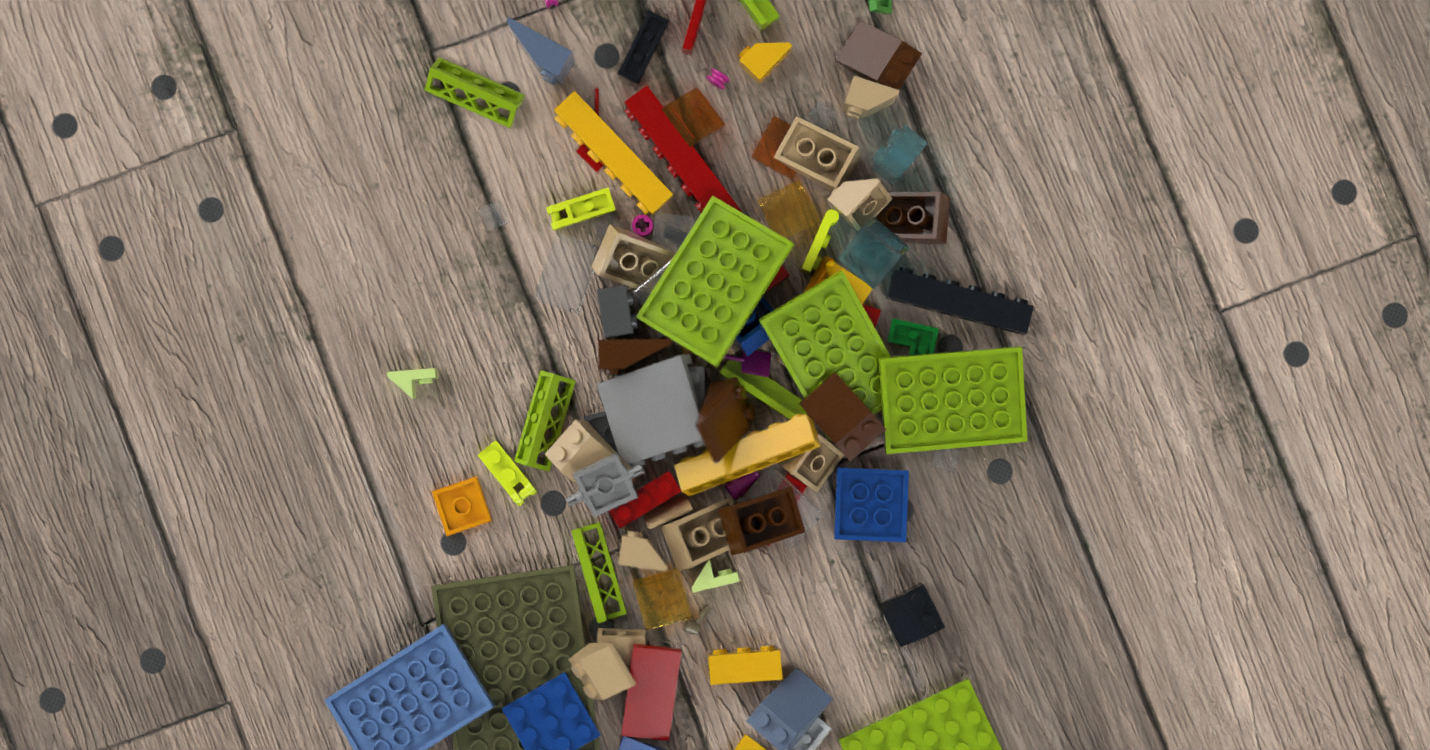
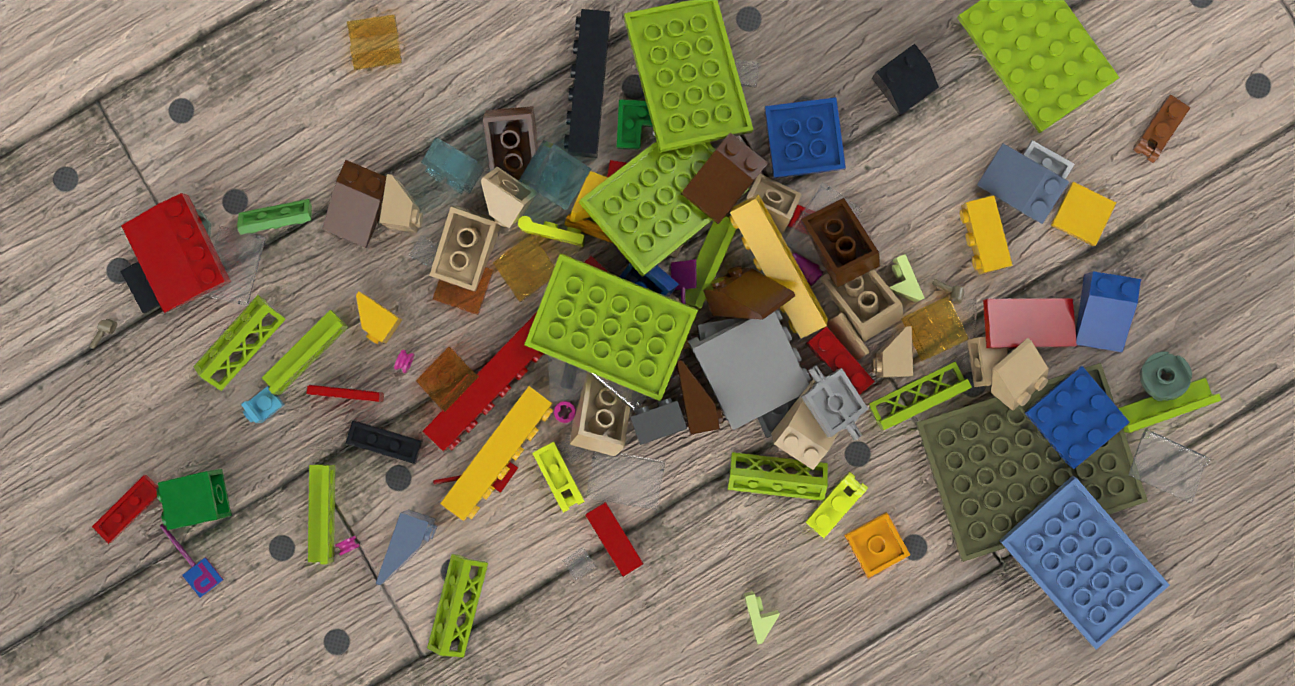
camera: 95 degrees left, 0 degrees up
(512, 253) = (614, 539): none -> red tile
(1035, 100) = (374, 42): none -> clear yellow slope

